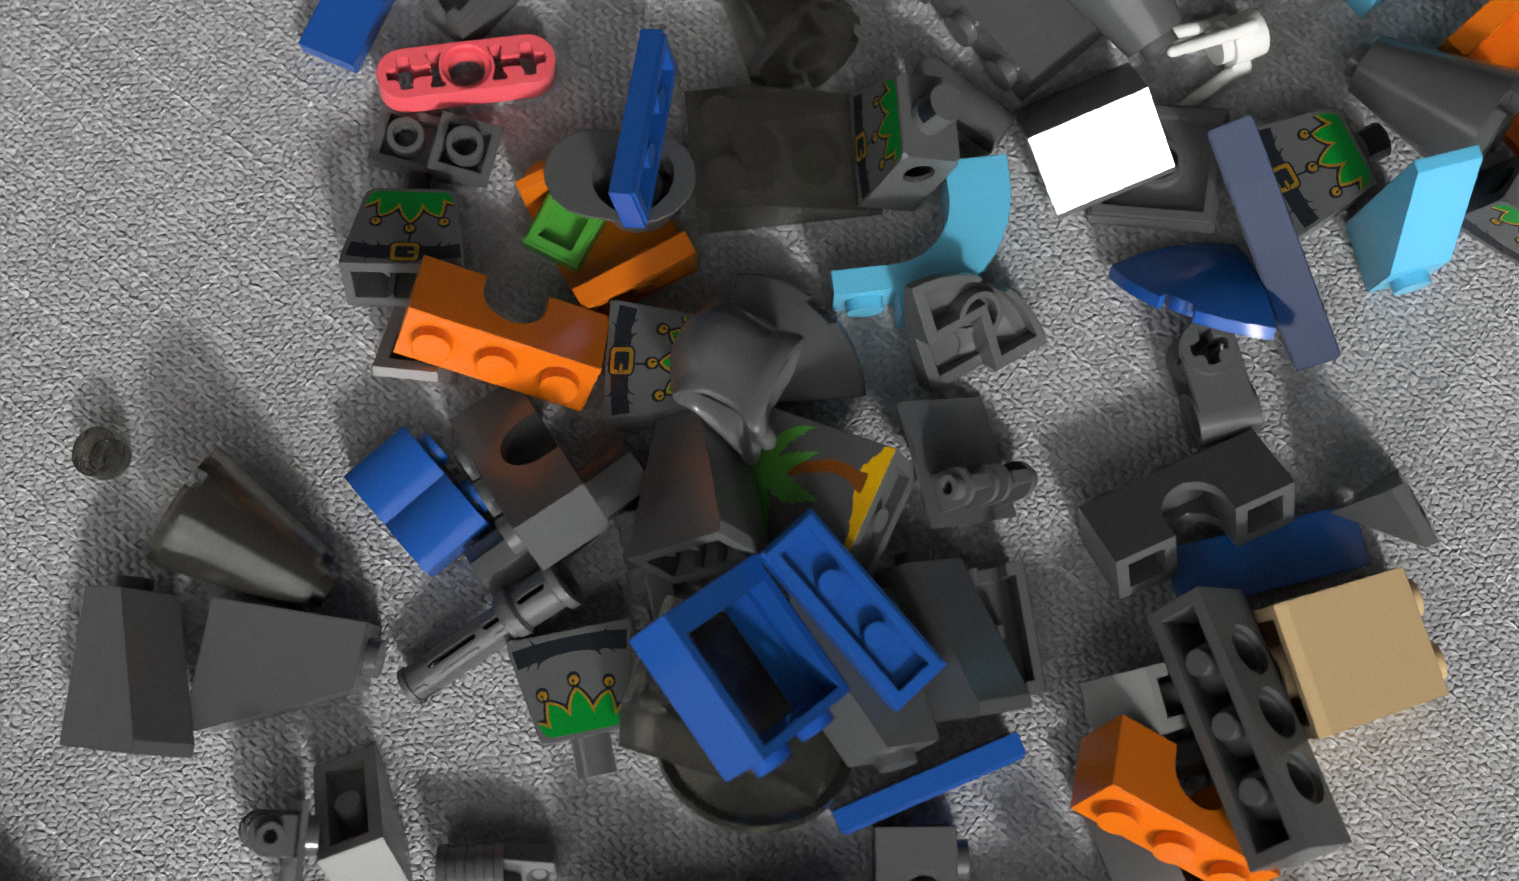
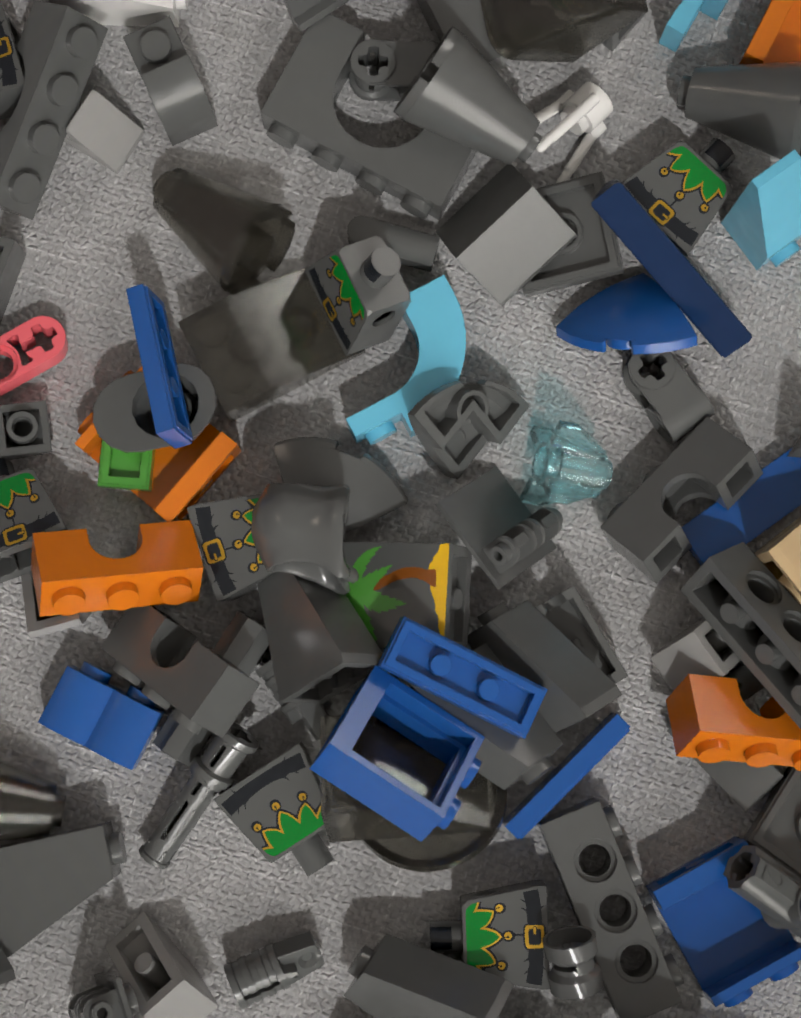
camera: 25 degrees left, 5 degrees up
(1064, 423) = (566, 466): none -> clear light blue brick

